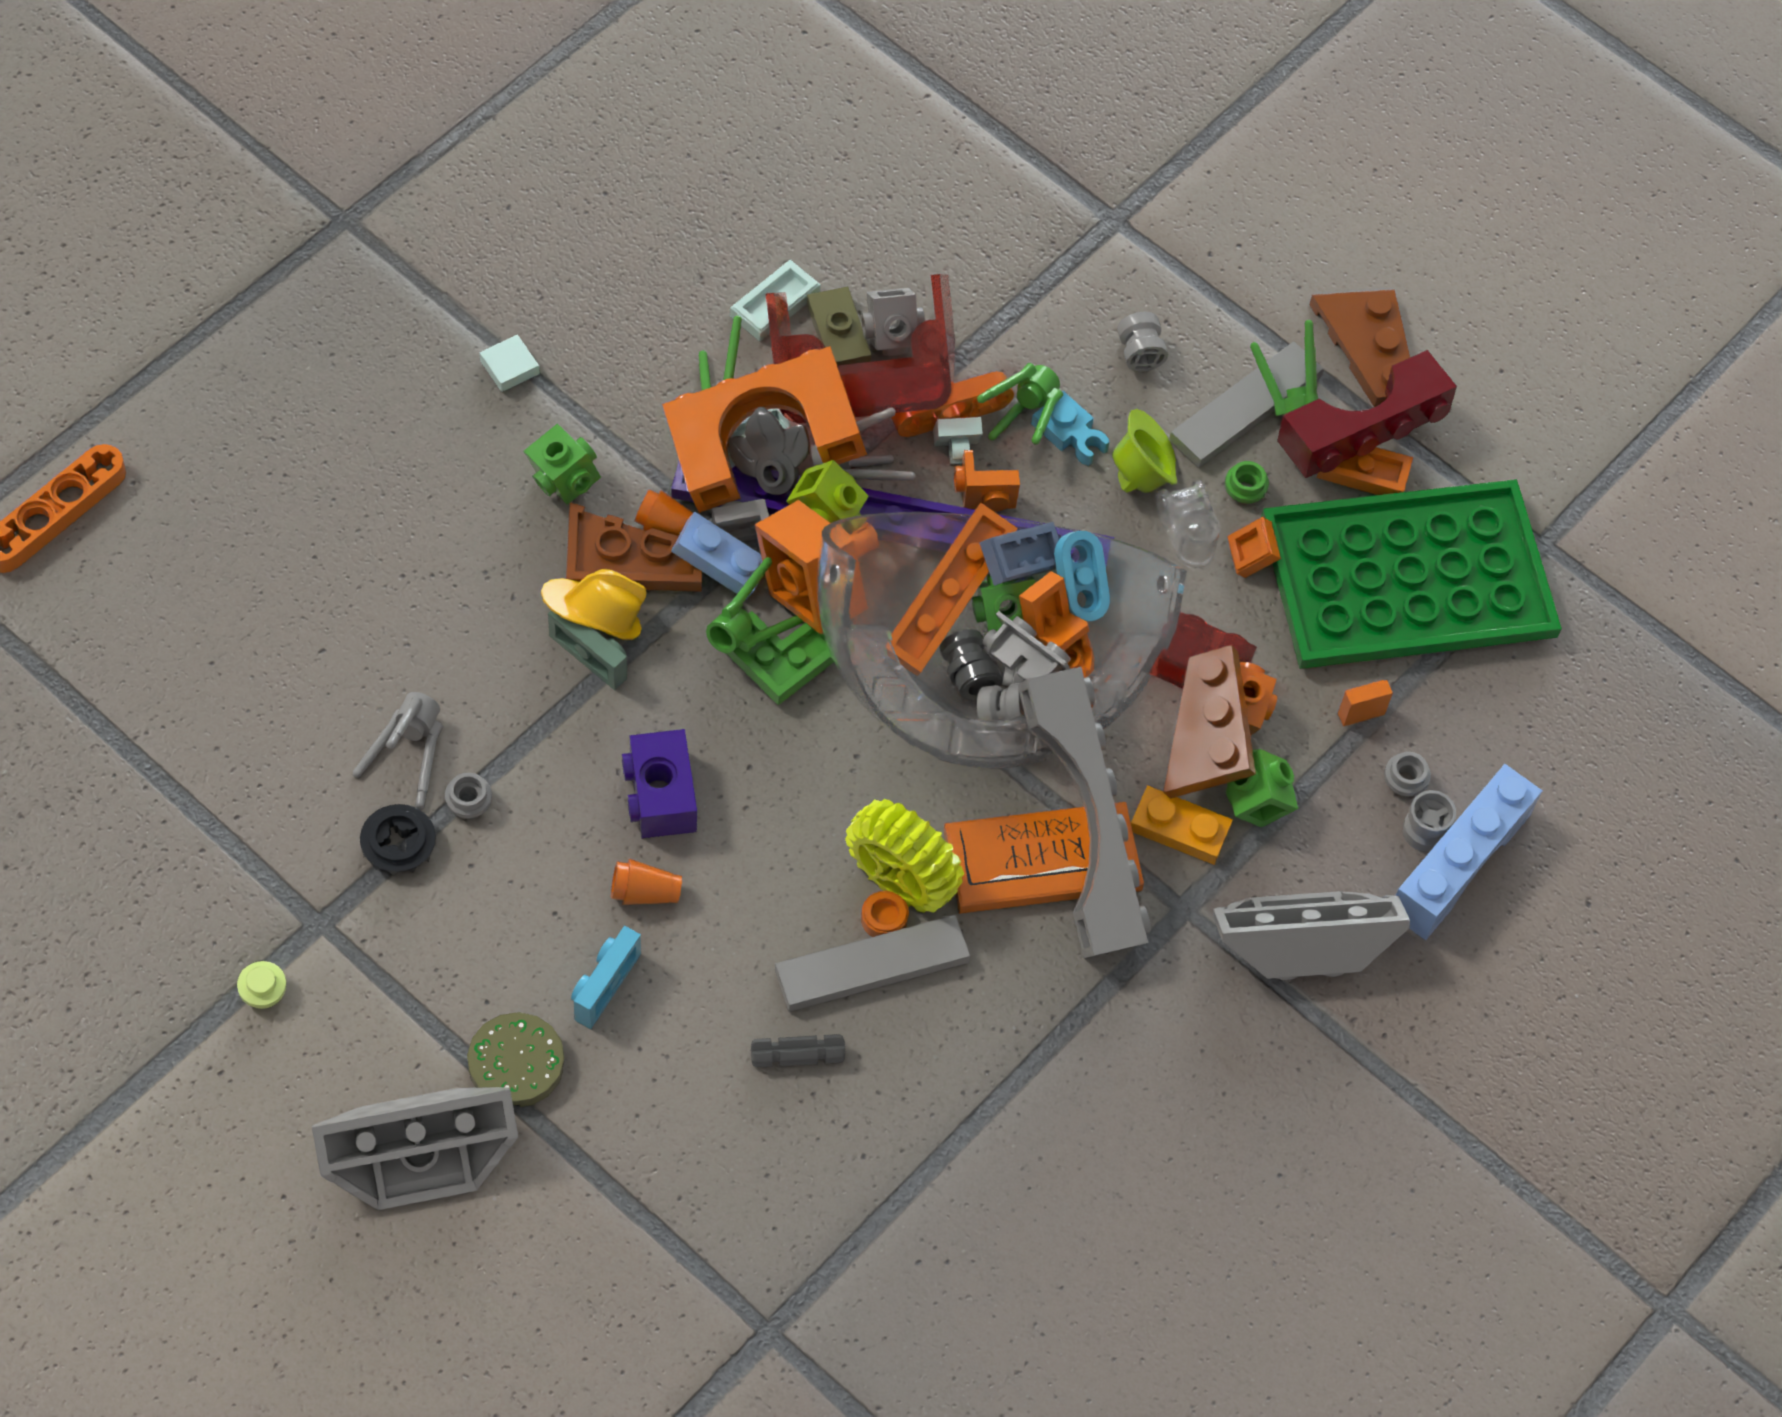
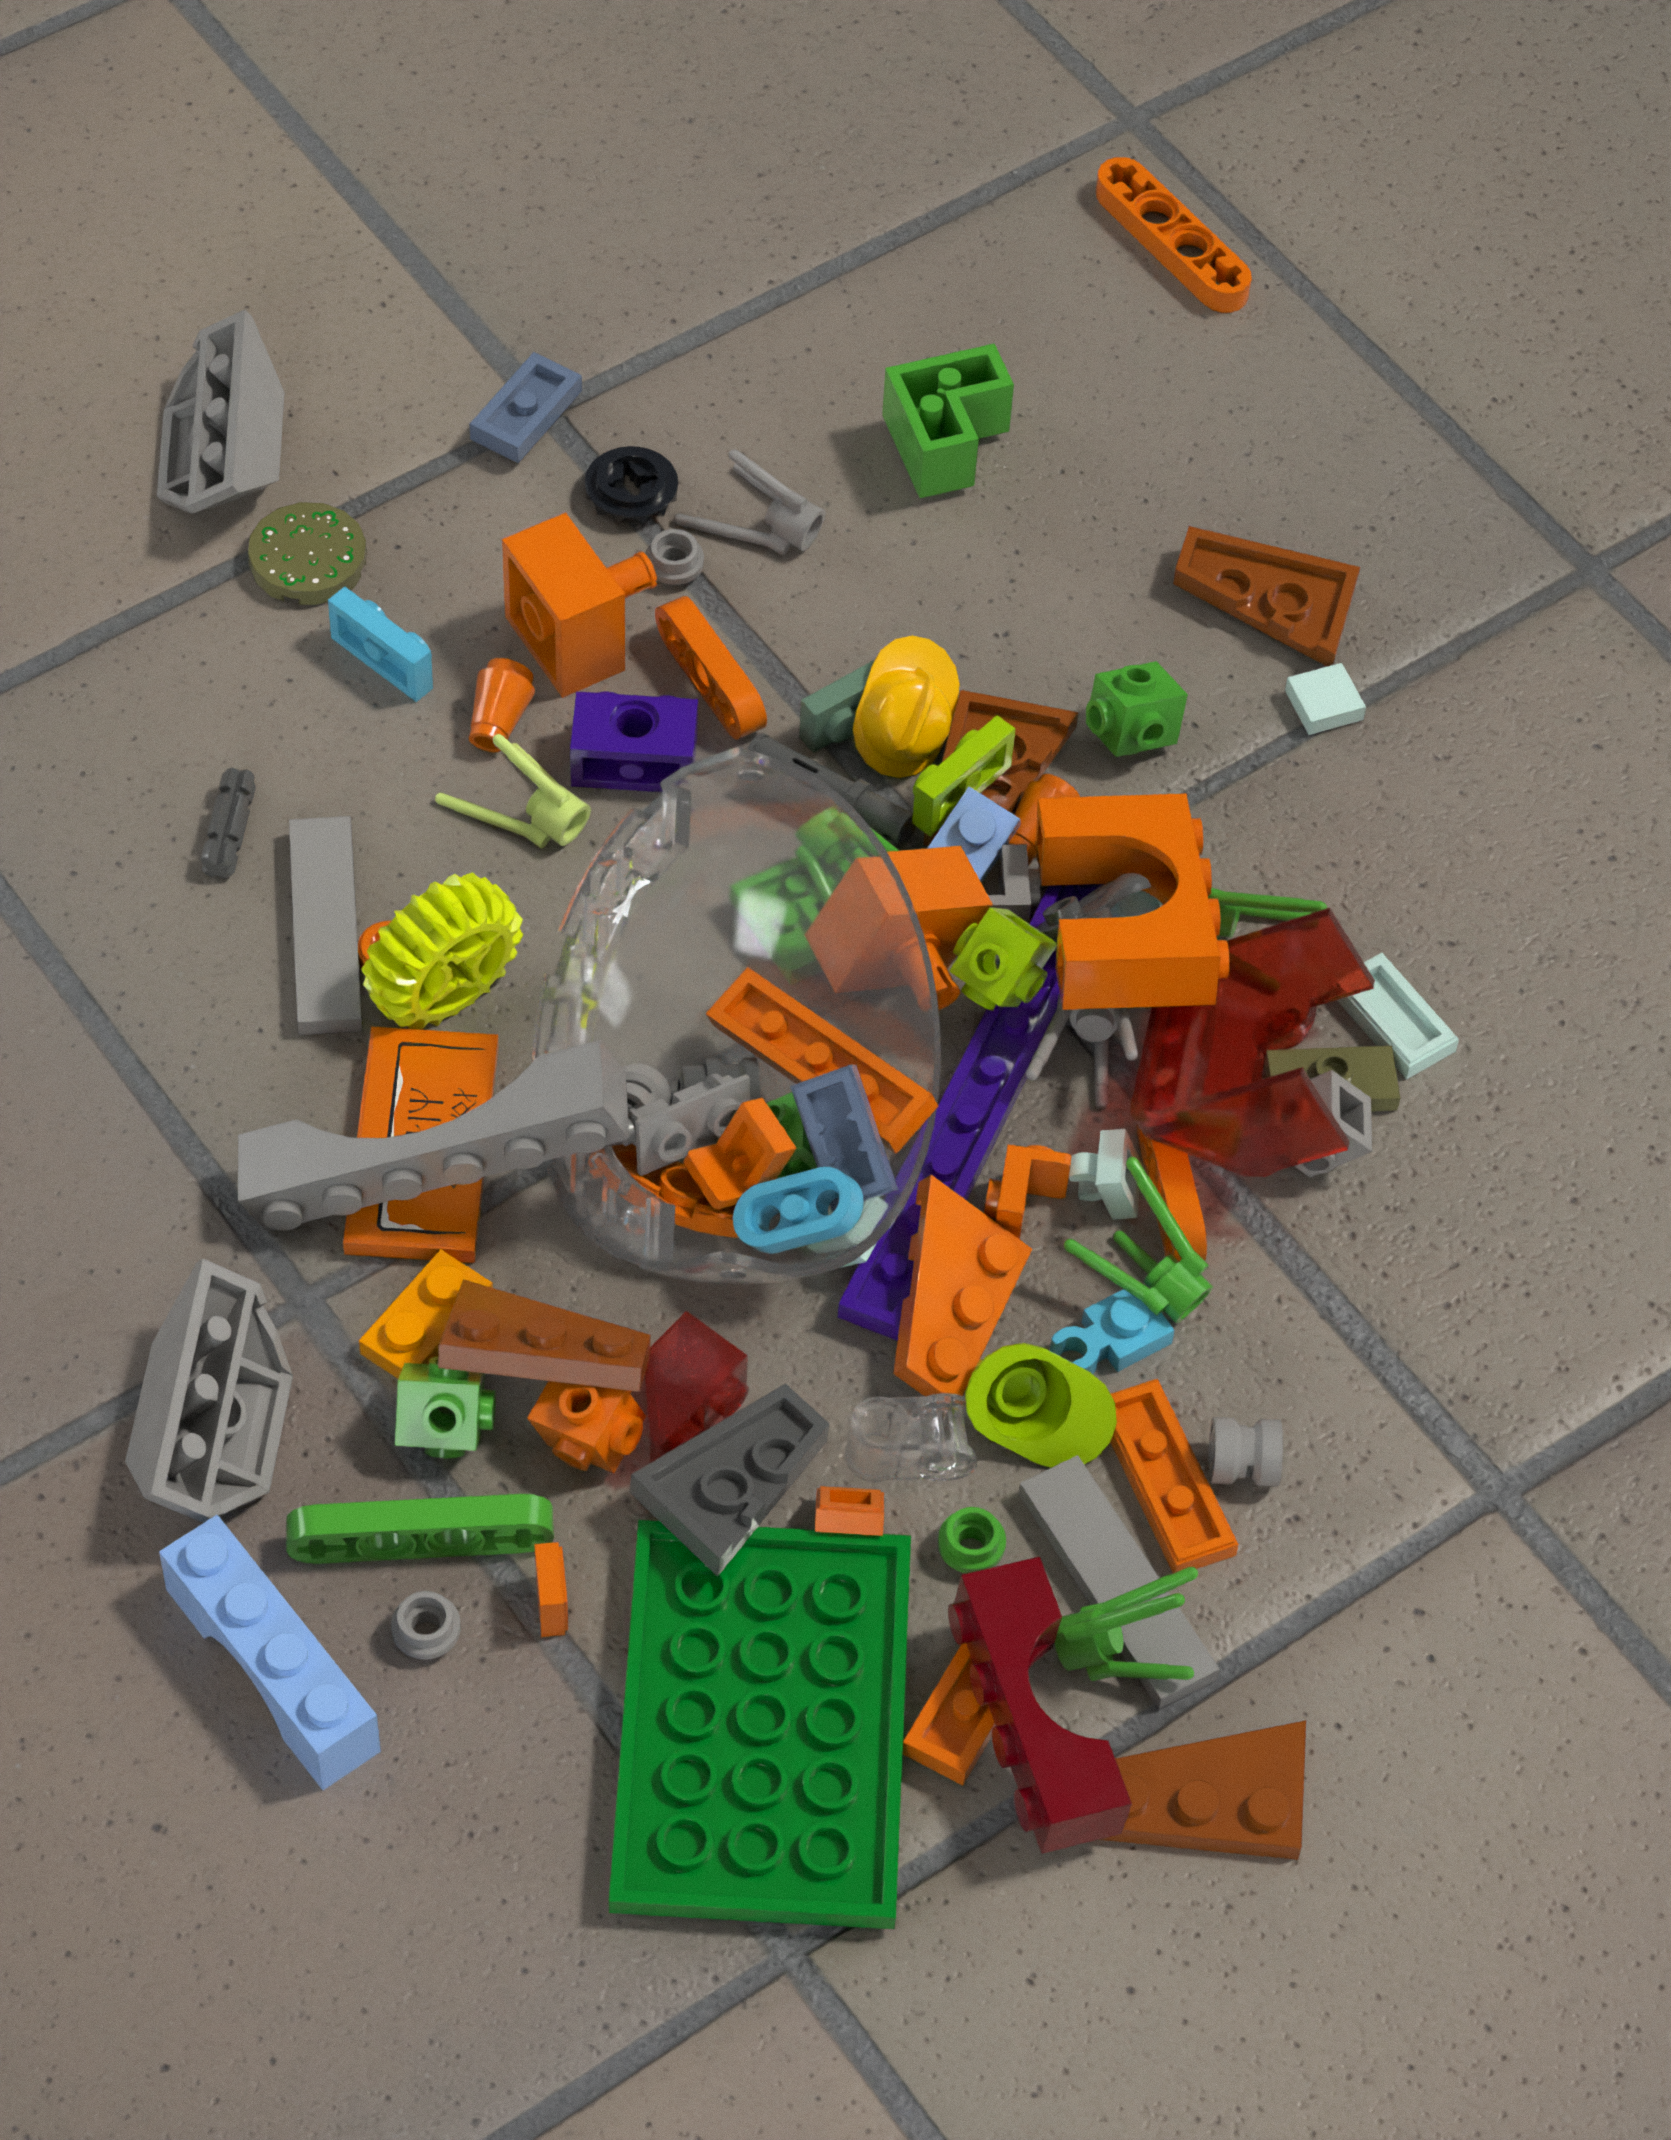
camera: 105 degrees right, 5 degrees down
(261, 984) = (474, 341): yellowish green plate -> none
(303, 630) = (941, 411): none -> bright green brick
(333, 928) = (525, 407): none -> sand blue plate
(418, 401) = (1271, 588): none -> dark orange wing
(554, 839) = (569, 602): none -> orange brick
(576, 747) = (711, 667): none -> orange beam
(660, 550) = (974, 764): none -> lime plate
(678, 637) = (879, 813): none -> dark grey pin
(734, 828) = (553, 809): none -> yellowish green plant
(1083, 507) = (957, 1290): none -> orange wing
(1165, 386) = (1169, 1480): none -> orange tile
(1265, 614) = (731, 1475): none -> dark grey wing
(1346, 788) = (419, 1528): none -> bright green beam
(1428, 811) = (336, 1604): light grey wheel -> none

